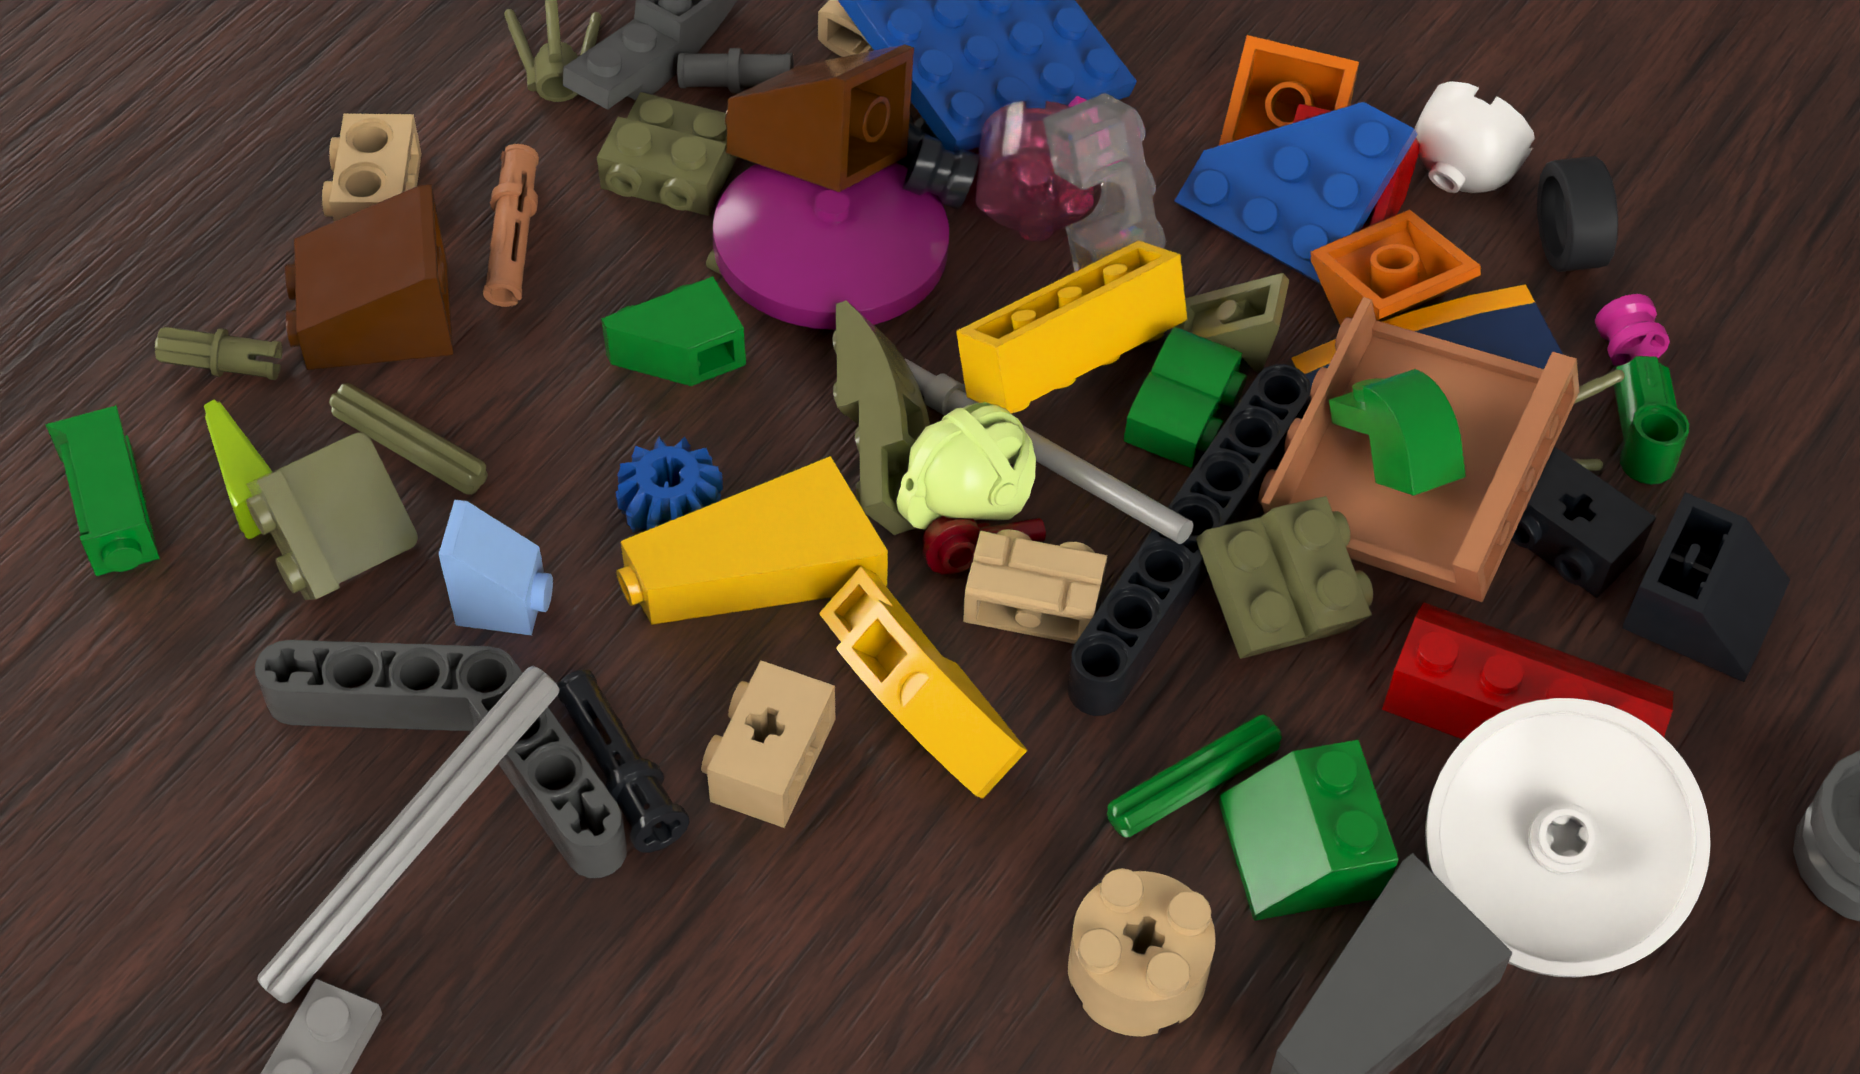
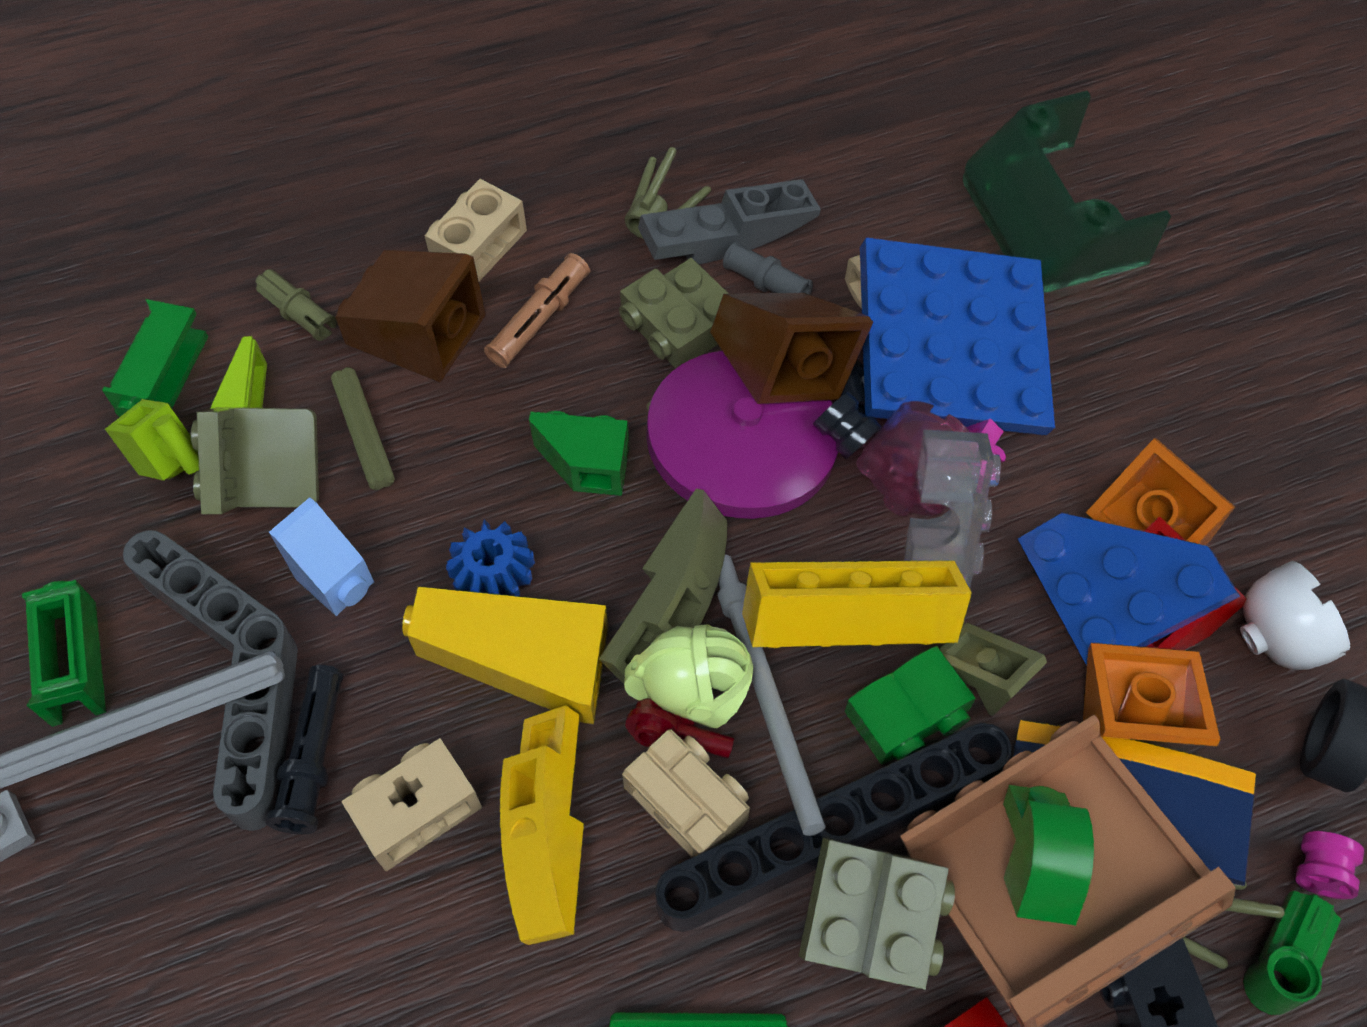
camera: 35 degrees right, 5 degrees up
(194, 558) = (154, 441): none -> lime brick
(221, 768) = (85, 666): none -> green window

